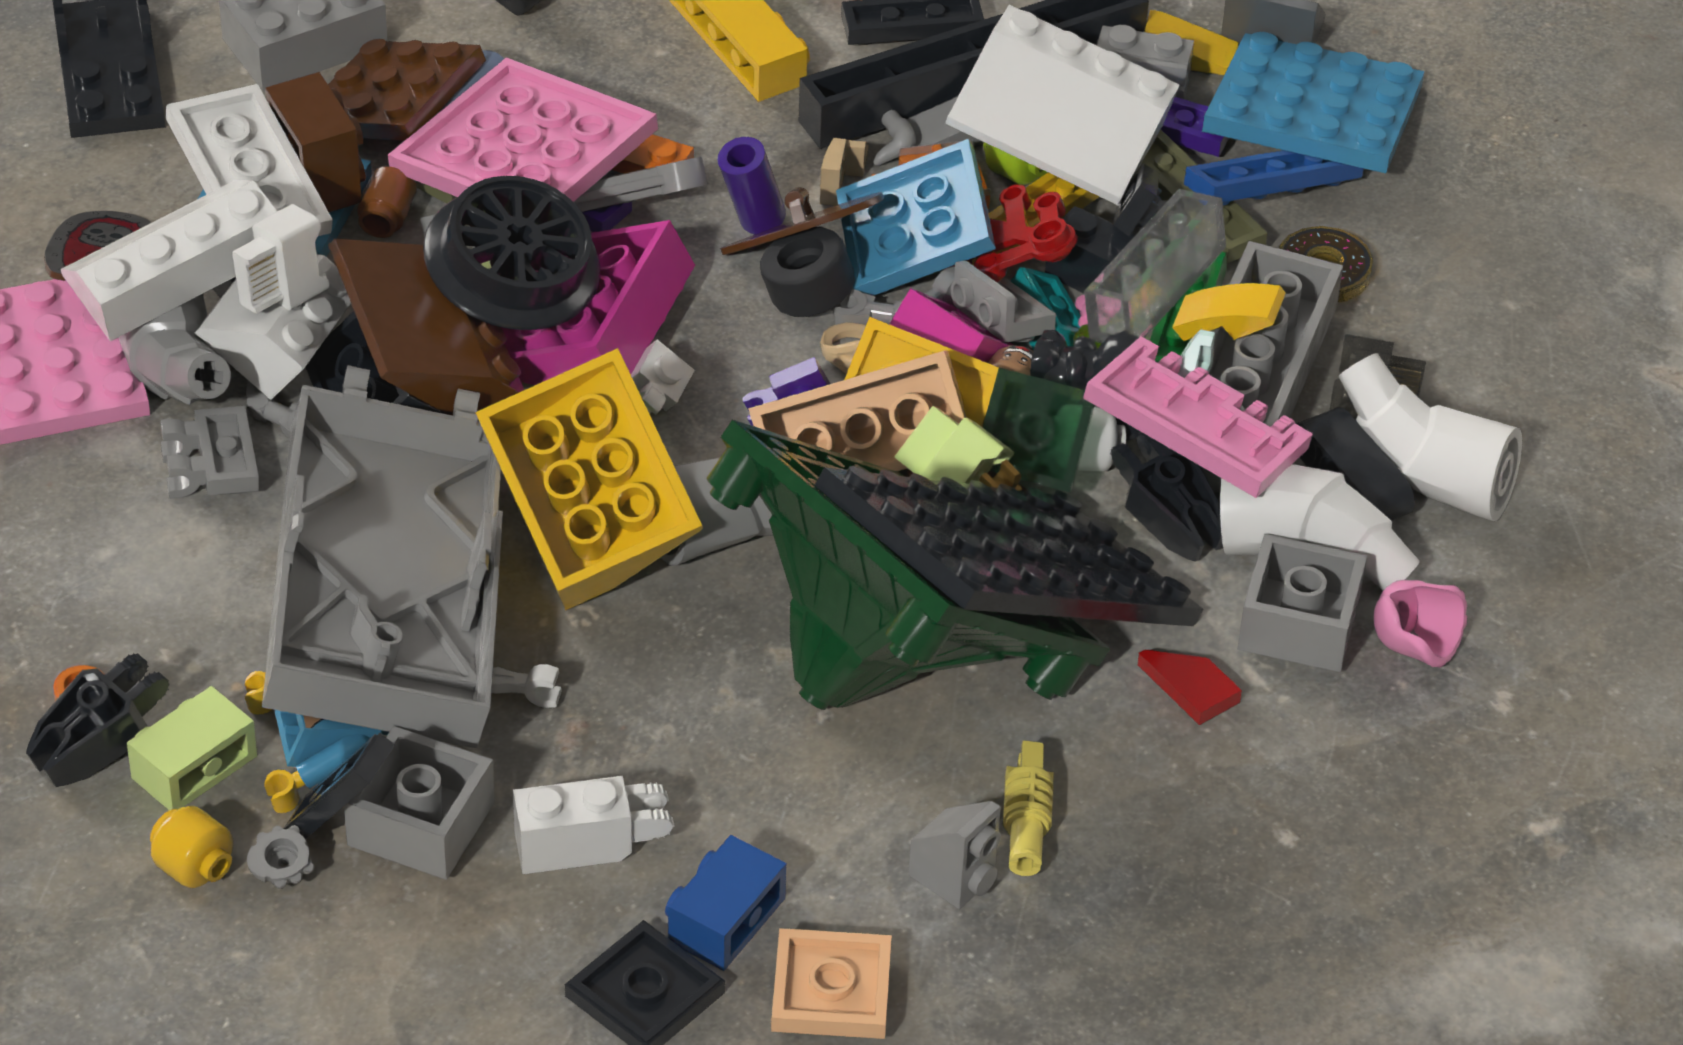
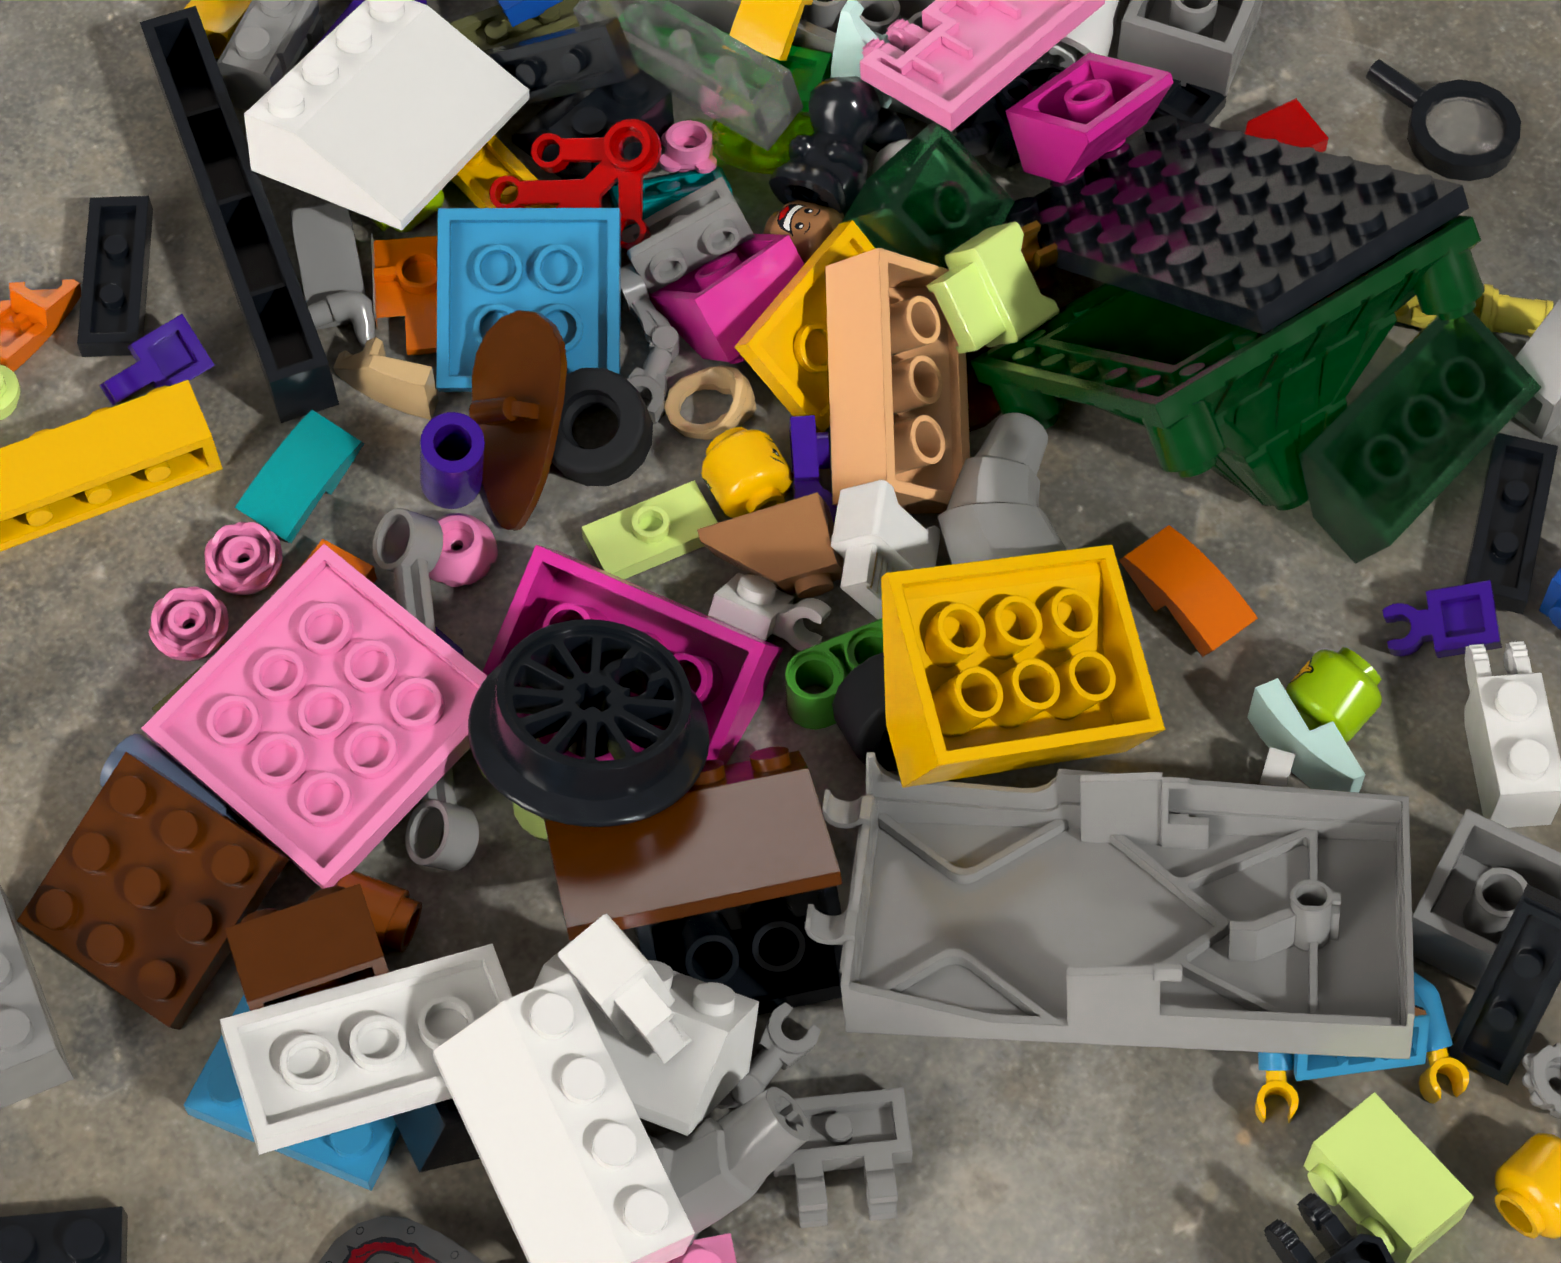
camera: 80 degrees left, 15 degrees up
(578, 687) = (1320, 754): none -> light aqua slope
(615, 714) = (1336, 689): none -> lime head
(616, 83) = (185, 607): none -> bright pink plate
(675, 110) = (238, 542): none -> bright pink plate
(694, 424) = (878, 539): none -> white piece
(695, 788) = (1453, 621): none -> dark purple plate
(698, 220) = (473, 559): none -> bright pink plate
(706, 624) = (1193, 589): none -> orange slope
(710, 383) = (782, 545): none -> medium nougat slope
(727, 323) = (649, 531): none -> yellowish green plate
(731, 118) = (299, 474): none -> teal slope
(773, 352) = (745, 471): none -> yellow head
(808, 833) = (1511, 519): none -> black plate
(833, 45) = (162, 359): none -> dark purple plate
(865, 736) = (1412, 433): none -> clear green slope
(1145, 507) = (1084, 114): none -> dark pink slope
(1219, 626) = (1190, 103): none -> black tile
(1242, 812) = (1455, 126): none -> black piece

